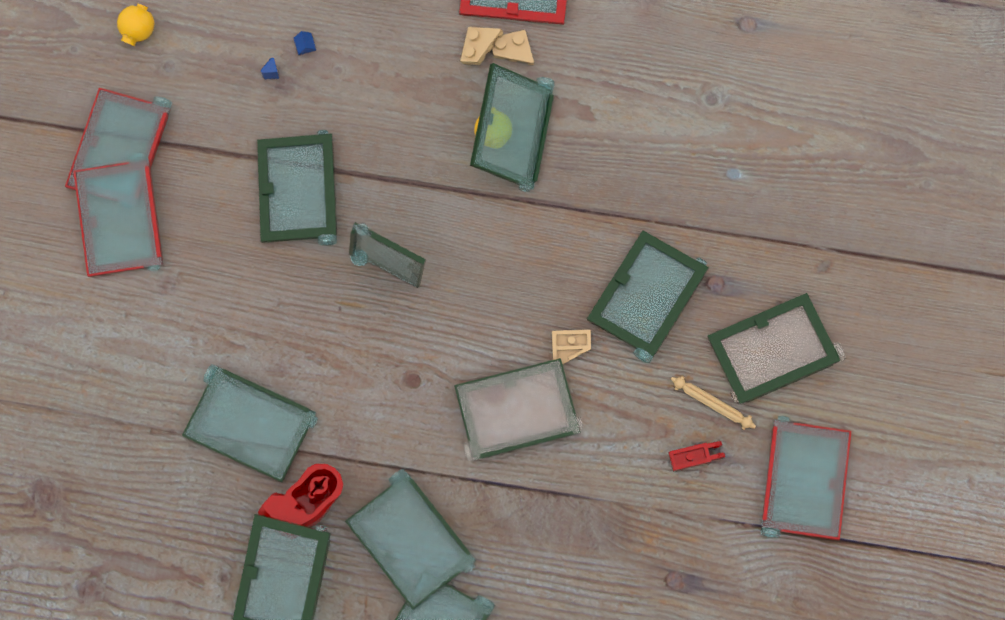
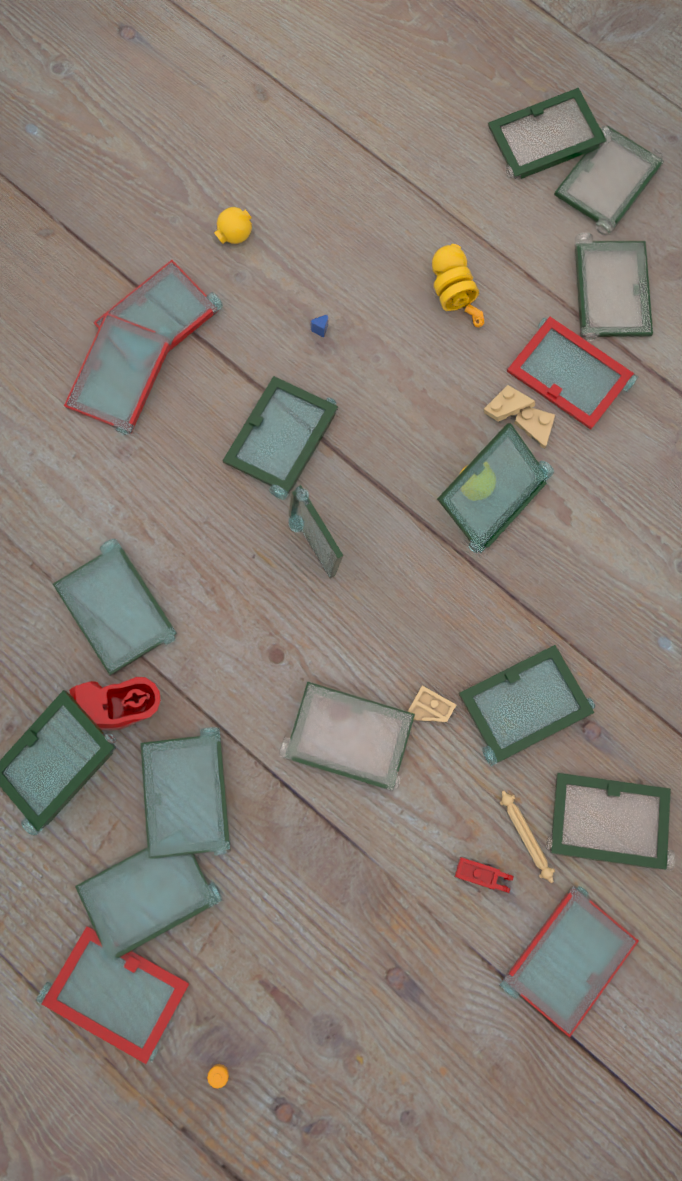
camera: 25 degrees right, 0 degrees up
(304, 42) = (362, 320): blue slope -> none

